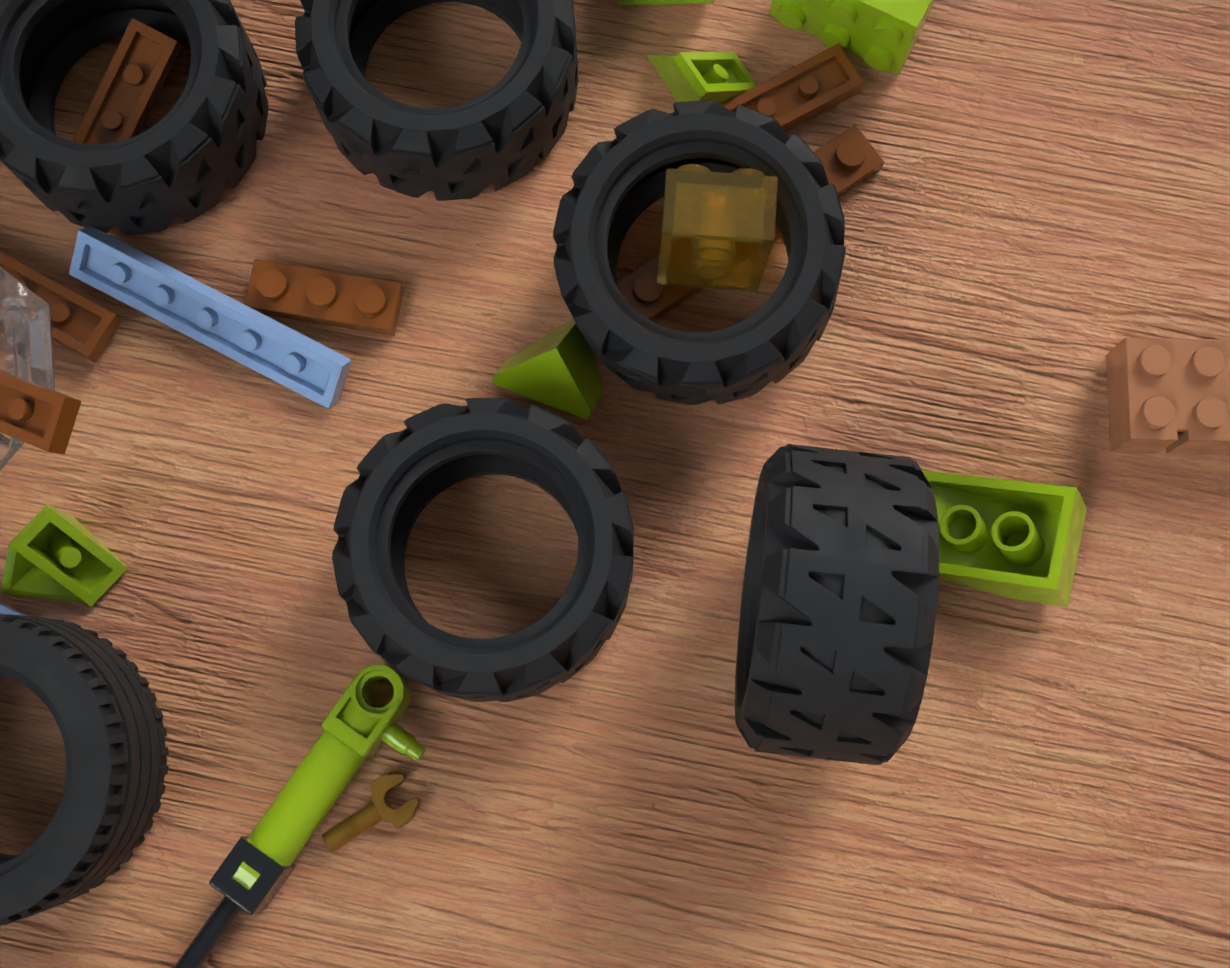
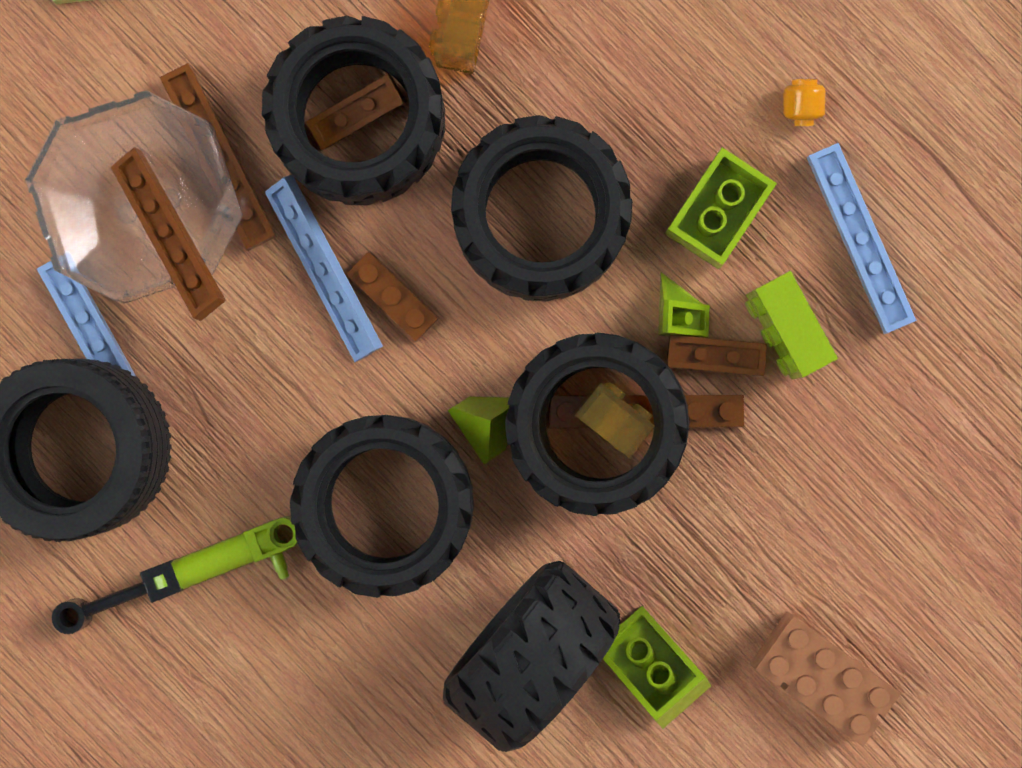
camera: 35 degrees right, 10 degrees up
(59, 560) = (167, 353): lime slope -> none
(372, 813) = (242, 589): pearl gold bar -> none

